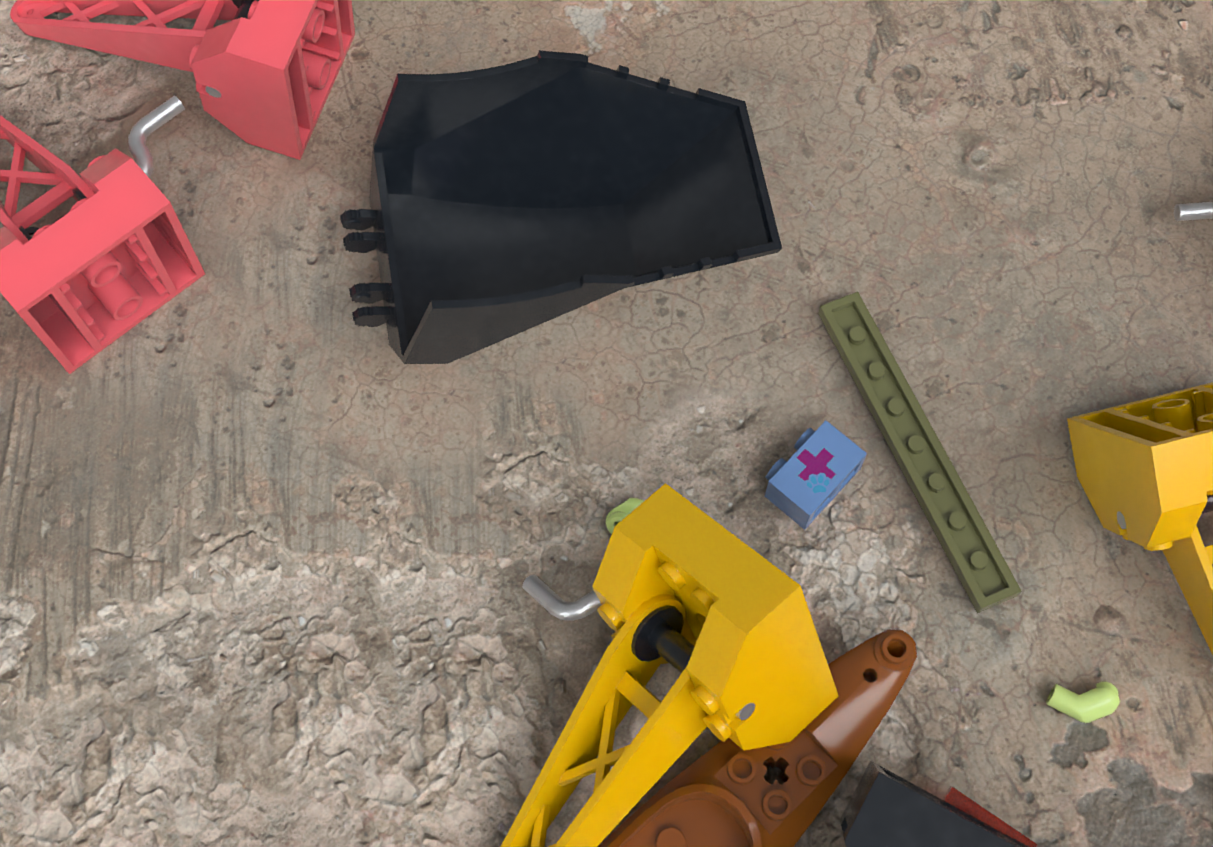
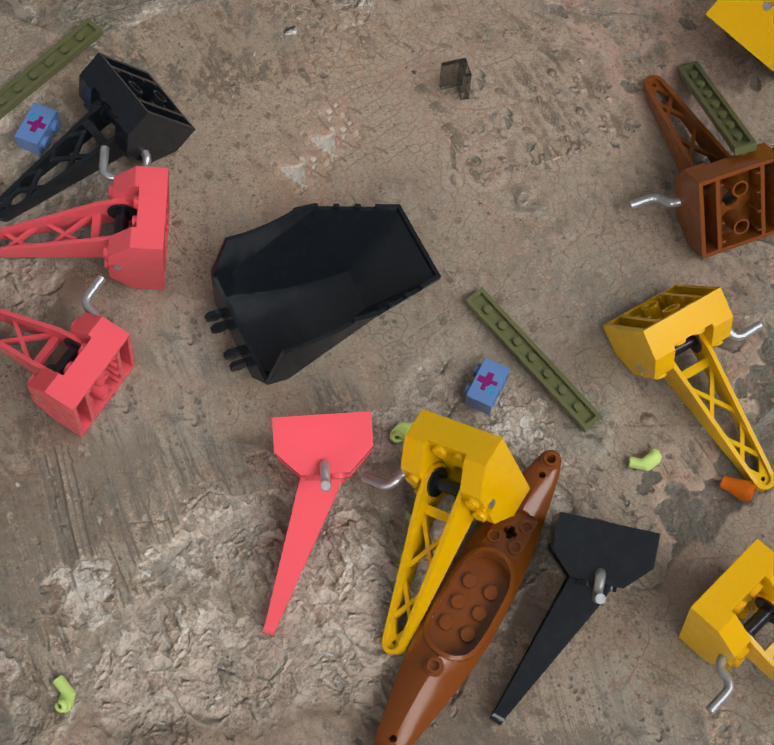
camera: 20 degrees left, 0 degrees up
(454, 521) = (322, 455): none -> coral piece

